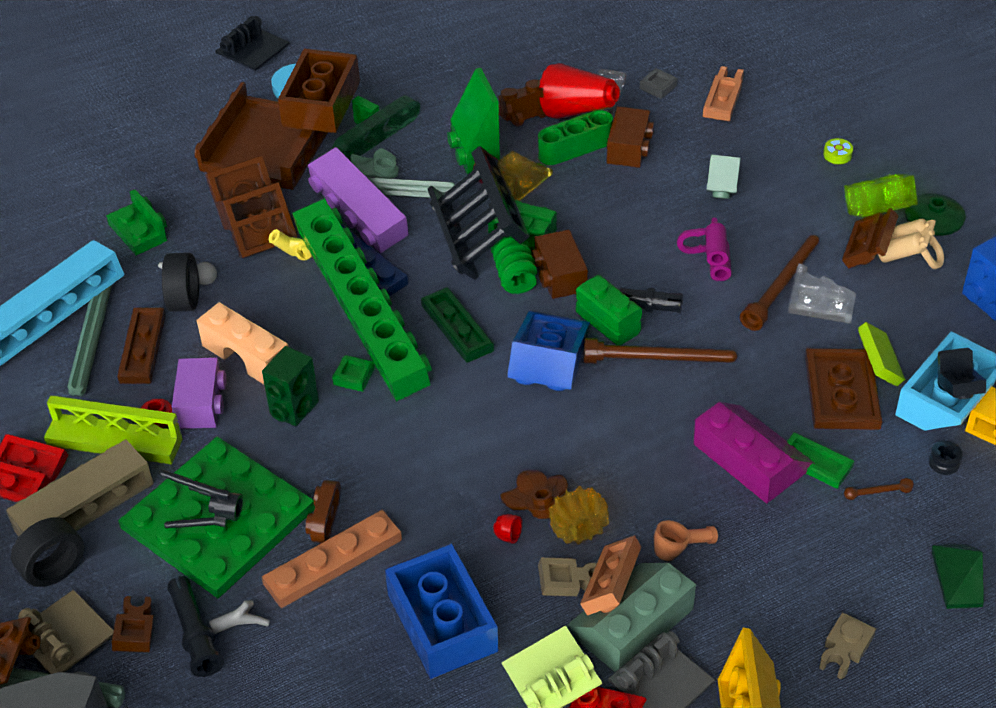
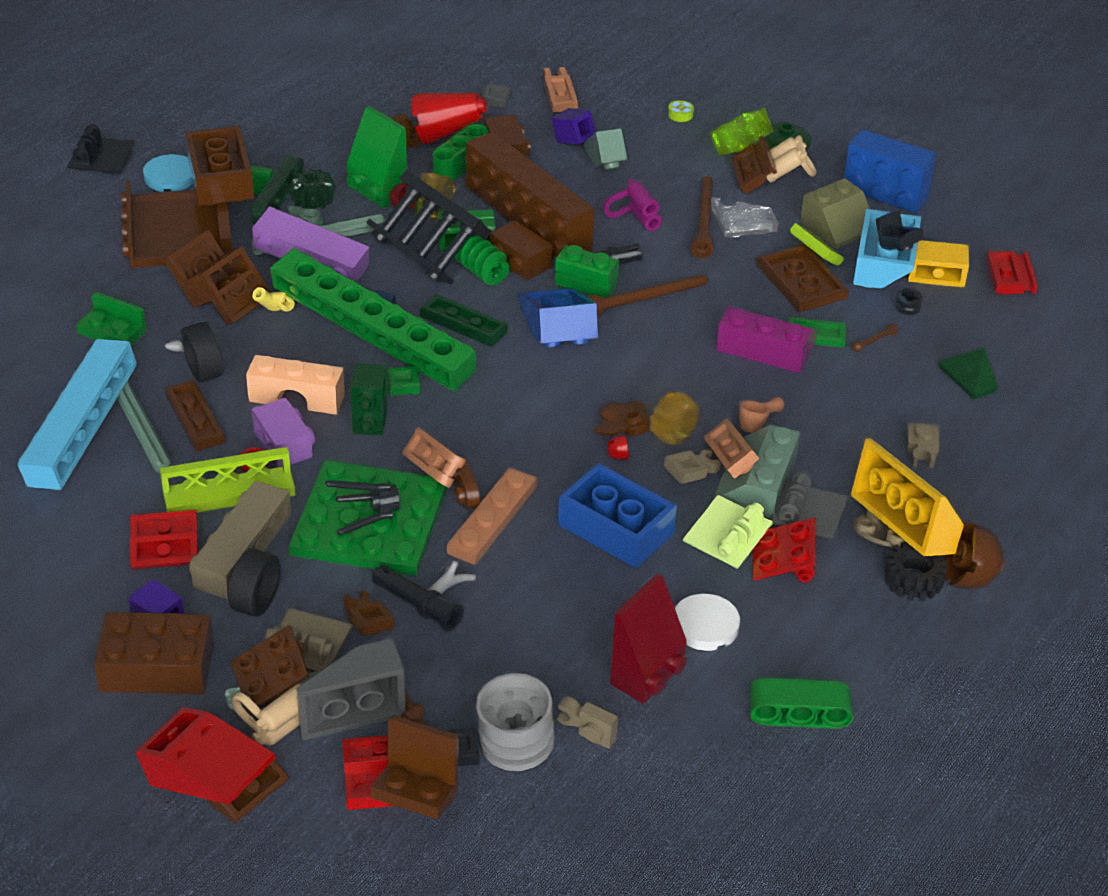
camera: 30 degrees left, 5 degrees down
(306, 474) = (433, 457): none -> nougat plate
(408, 136) = (312, 189): none -> clear green gear
(600, 208) = (527, 194): none -> reddish brown brick
(706, 139) = (573, 126): none -> dark purple brick
(925, 319) = (835, 212): none -> olive slope

